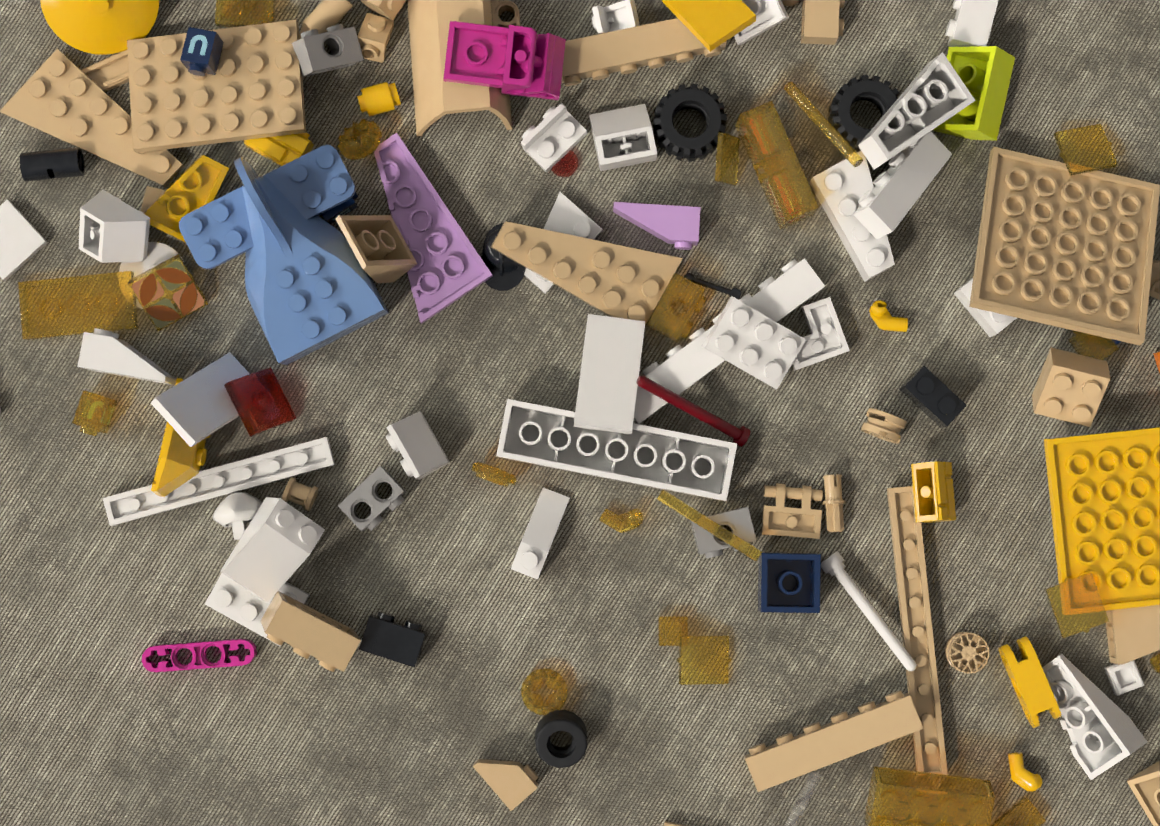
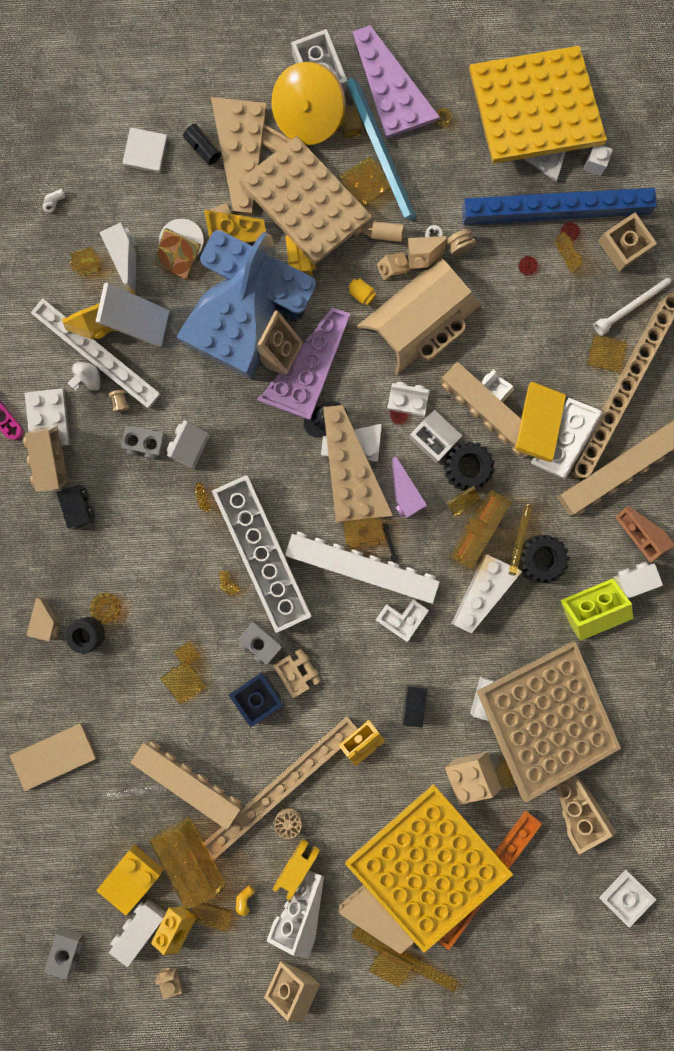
camera: 50 degrees right, 0 degrees up
(77, 305) = (136, 211): clear yellow tile -> none
(113, 230) = (188, 199): white slope -> none
(201, 51) = (317, 177): dark blue brick -> none
(260, 401) = (152, 344): clear red tile -> none
(272, 548) = (76, 406): white slope -> none
(343, 46) = (357, 239): light grey brick -> none
(370, 140) = (335, 302): clear yellow gear -> none
(505, 59) = (430, 340): dark pink piece -> none
(540, 533) = (188, 545): white slope -> none
(609, 374) = (299, 520): white tile -> none
(709, 525) = (256, 633): clear yellow bar -> none
(739, 435) = (318, 615): dark red bar -> none
(754, 342) = (373, 586): white plate -> none
(834, 503) = (318, 692): tan axle -> none
(835, 567) = (283, 718): white piece -> none
(883, 425) = (379, 689): tan wheel -> none
(884, 319) = (438, 648): yellow arm -> none
(901, 185) = (518, 606): white brick -> none
(923, 106) = (568, 587): white wedge -> none
(1077, 605) = (354, 867): clear yellow piece -> none
(1085, 149) = (610, 693): clear yellow piece -> none
(1124, 677) = (335, 920): white tile -> none

